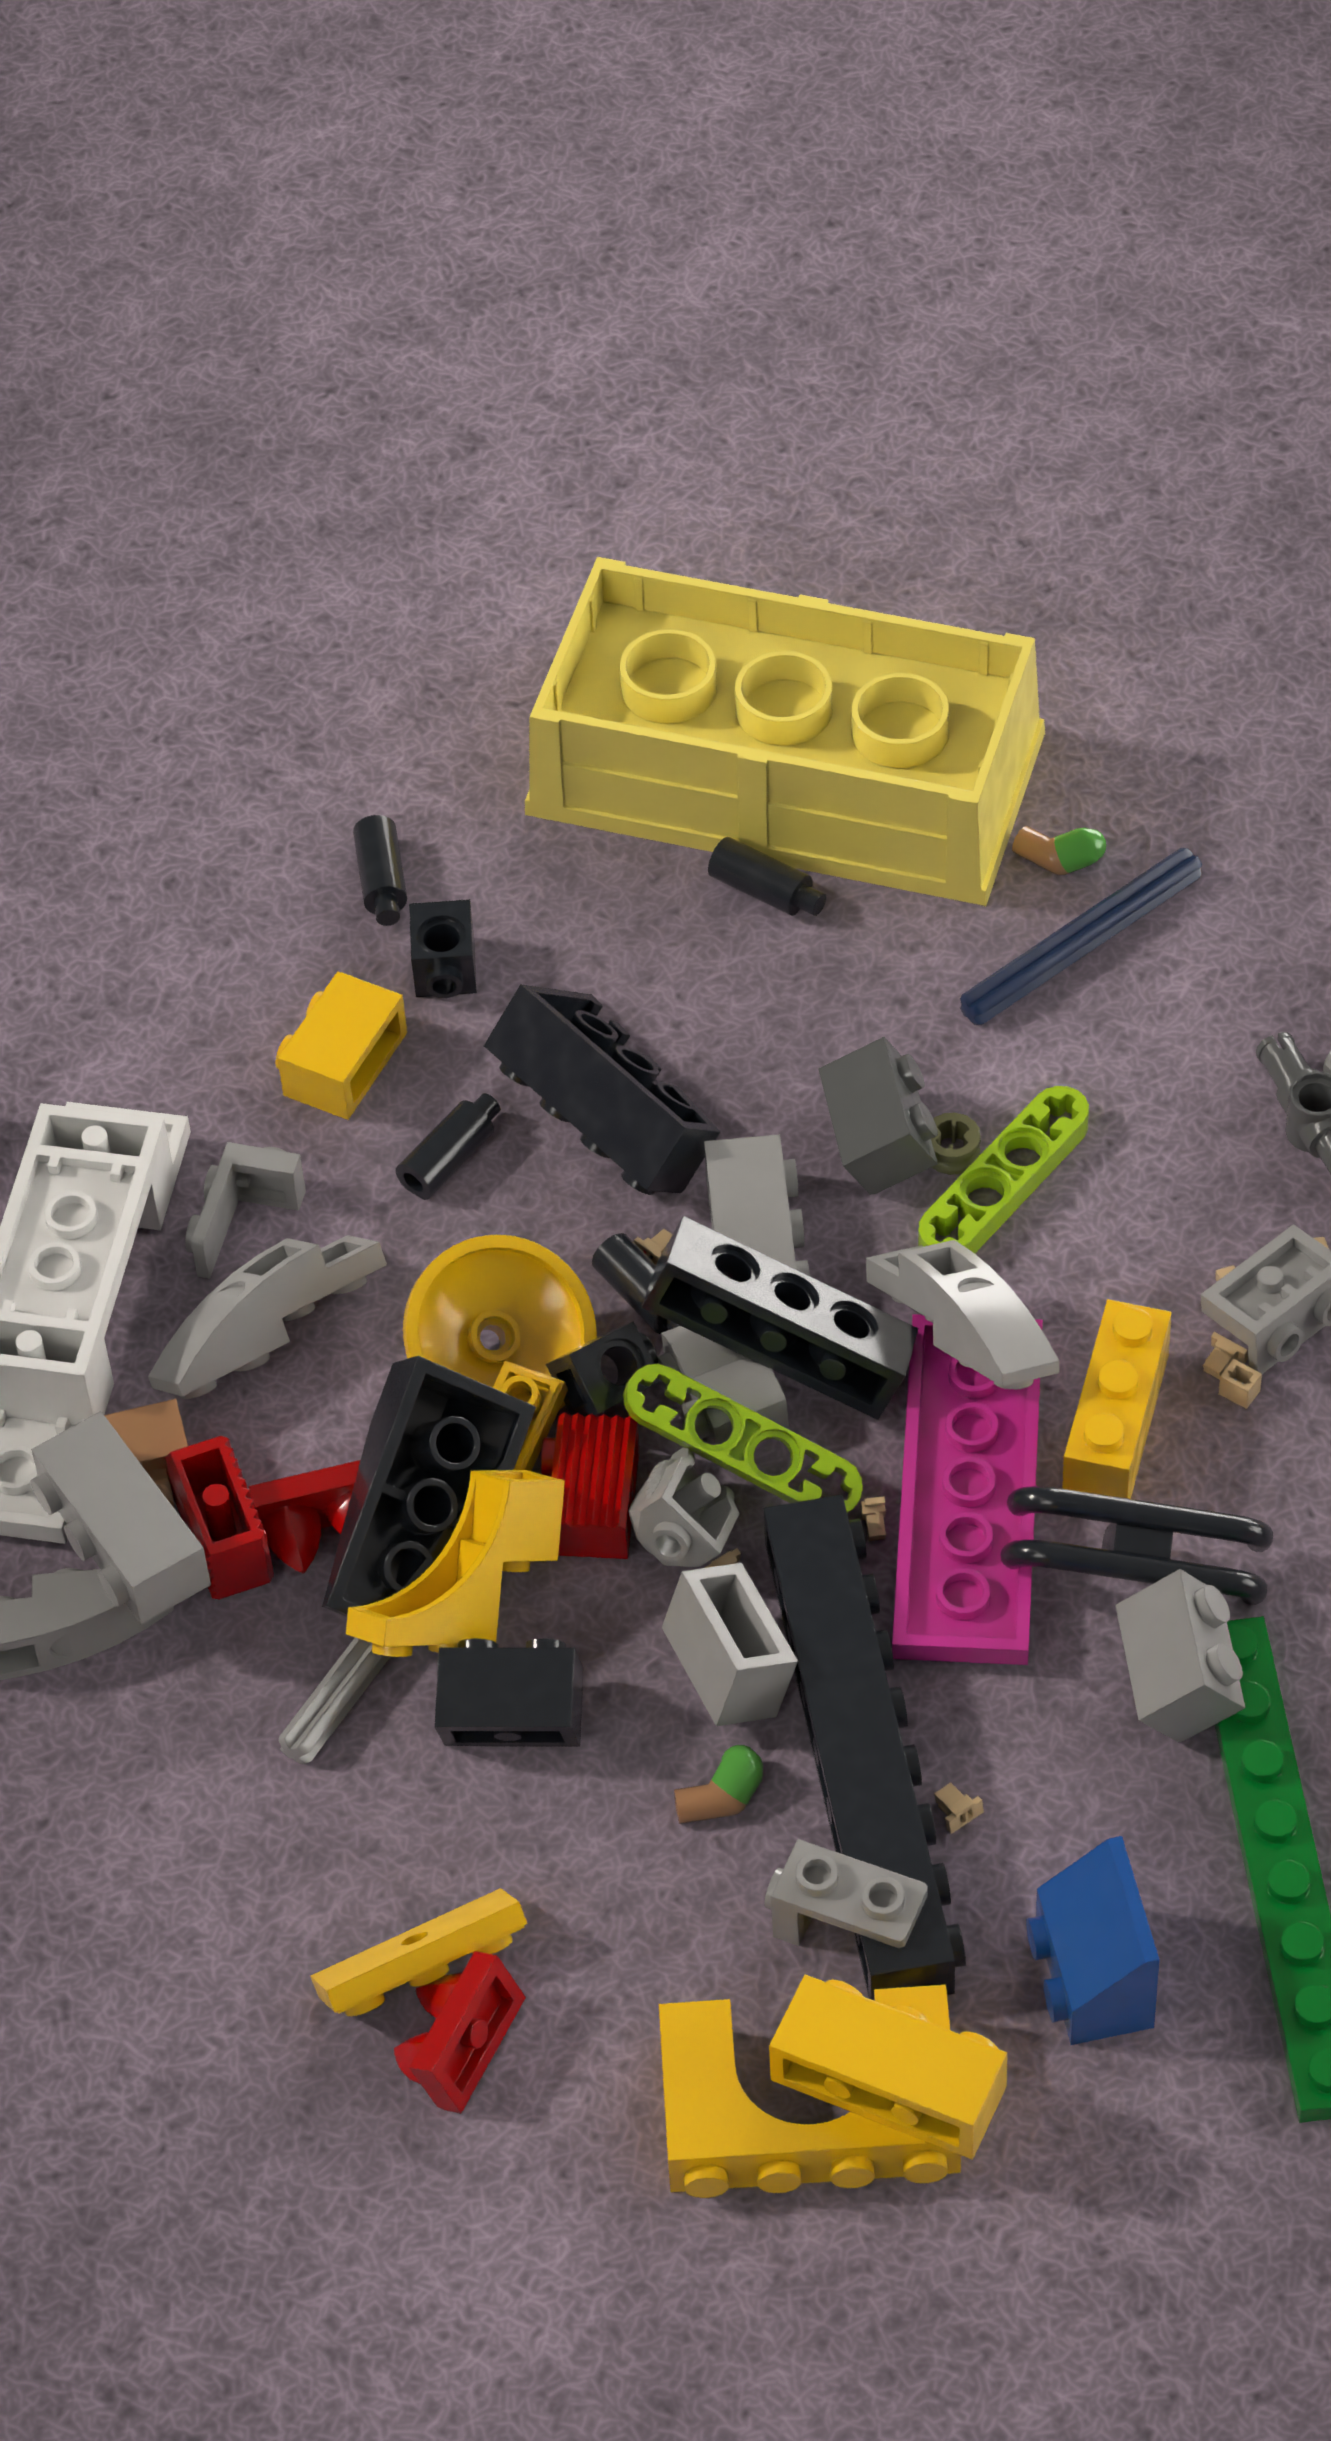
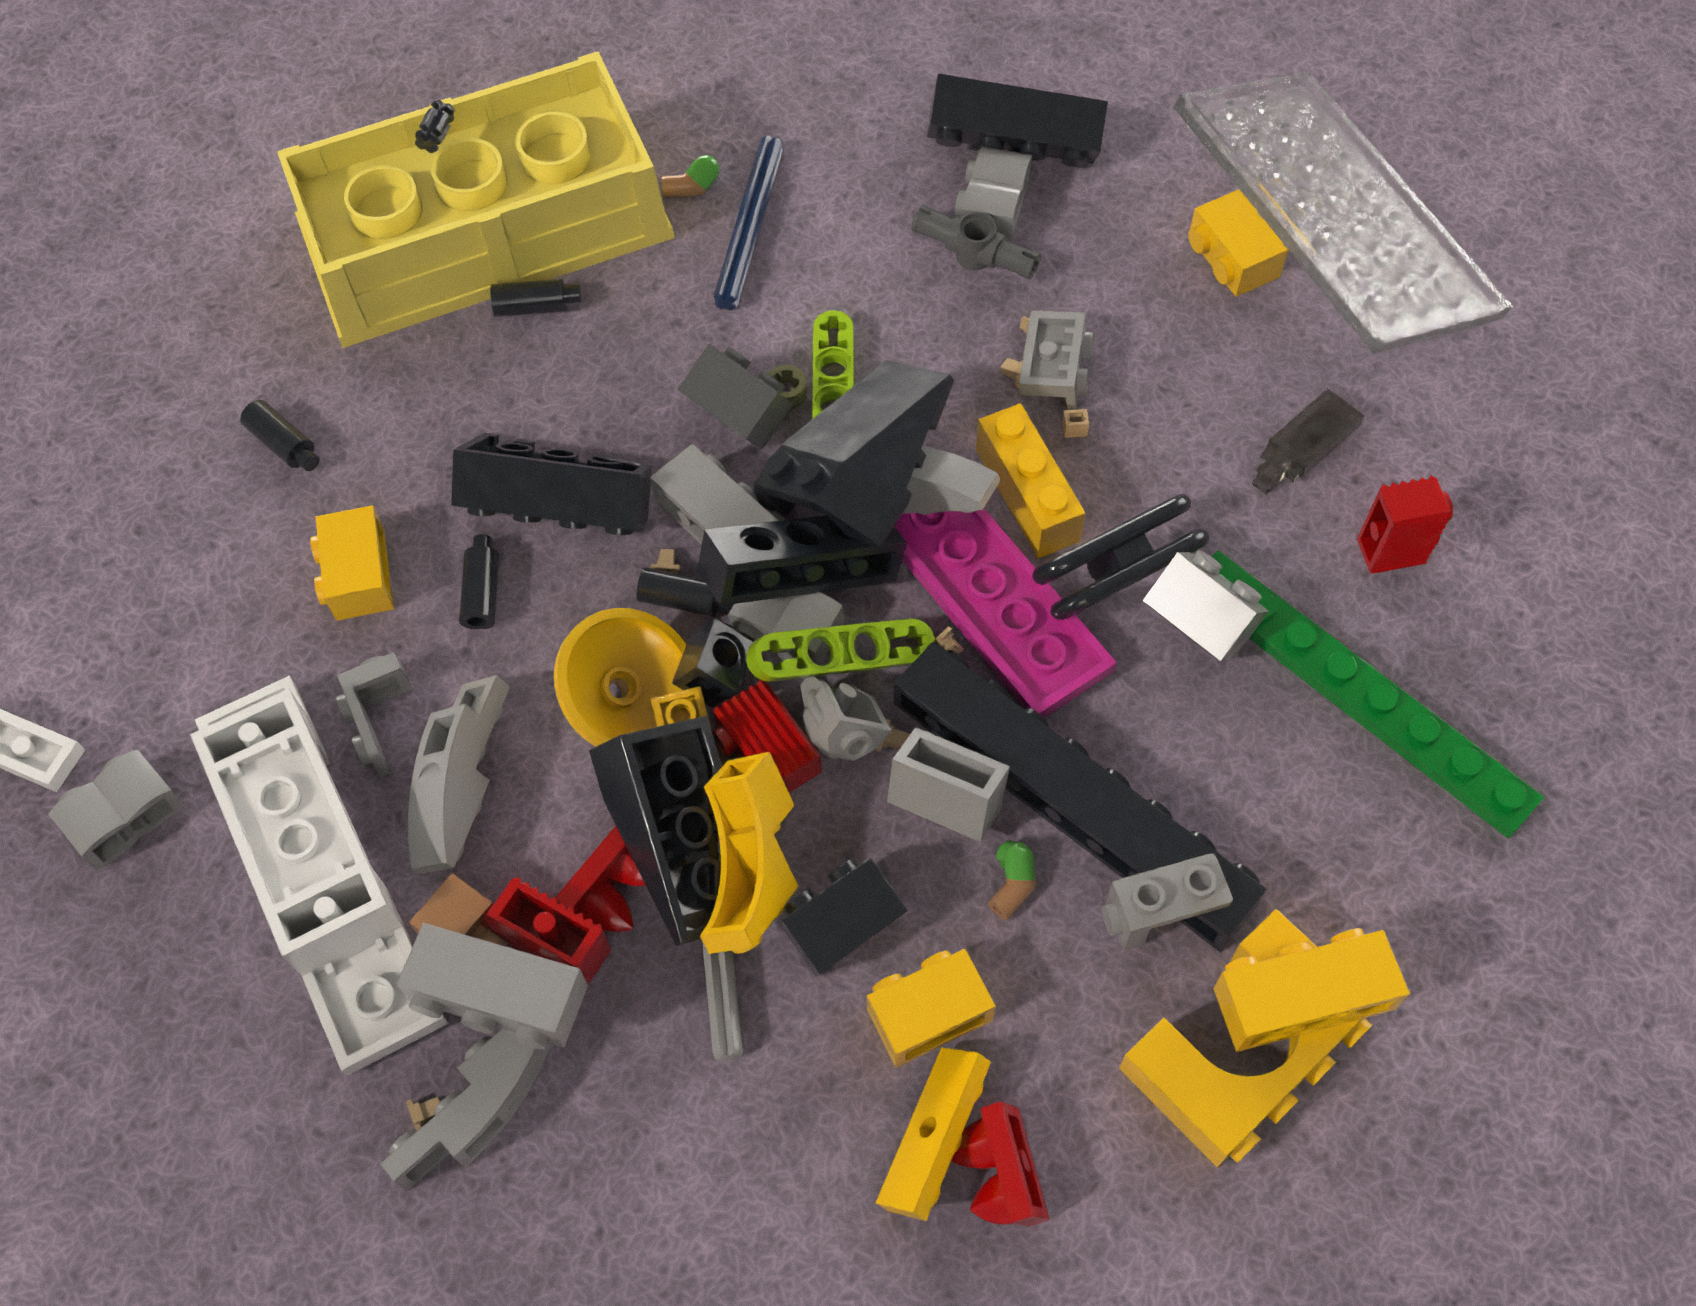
camera: 40 degrees left, 10 degrees up
(442, 948) = (368, 460): black brick -> none
(519, 1839) = (929, 1006): none -> yellow brick
(779, 623) = (434, 126): none -> black piece
(913, 1242) = (859, 452): none -> black wedge
(957, 1807) = (1154, 787): tan piece -> none
(1096, 1947) = (1332, 815): blue slope -> none
(1223, 1354) = (1049, 413): tan piece -> none

